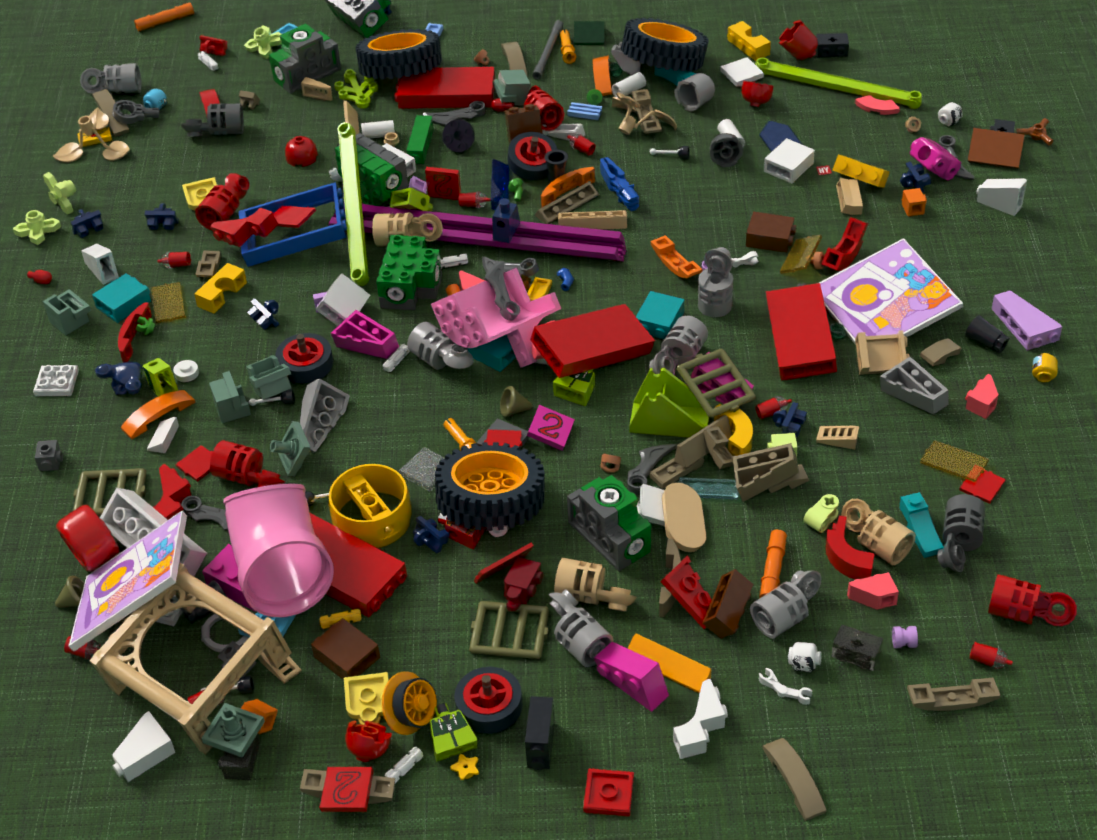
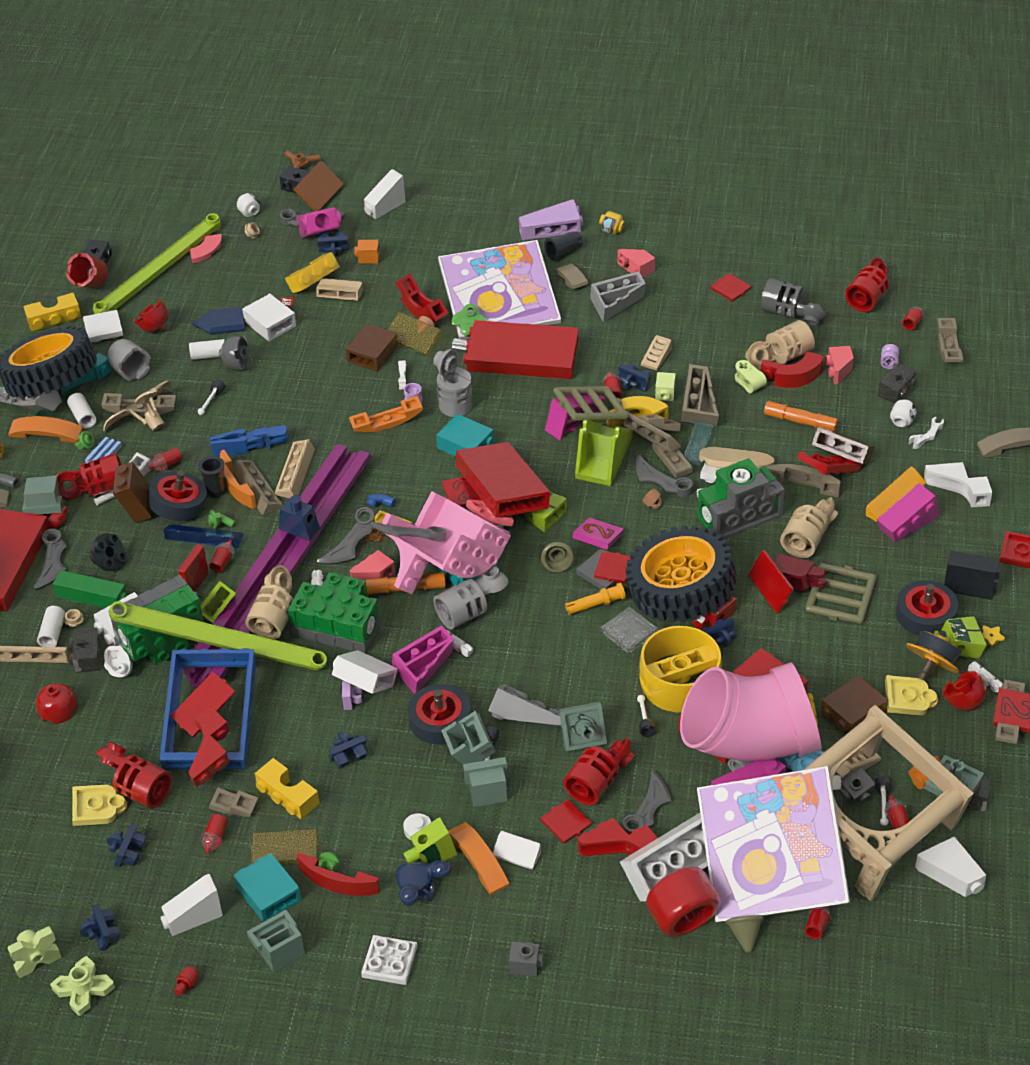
camera: 80 degrees left, 0 degrees up
(103, 475) = (568, 890): olive bar -> none
(578, 629) = (861, 538): light grey cylinder -> none
(680, 344) = (520, 427): light grey cylinder -> none
(785, 604) = (852, 411): light grey cylinder -> none
(831, 284) = (465, 319): none -> bright green plate
(880, 352) = (569, 305): tan panel -> none
(919, 521) = (760, 322): teal slope -> none
(954, 461) = (702, 295): clear yellow piece -> none

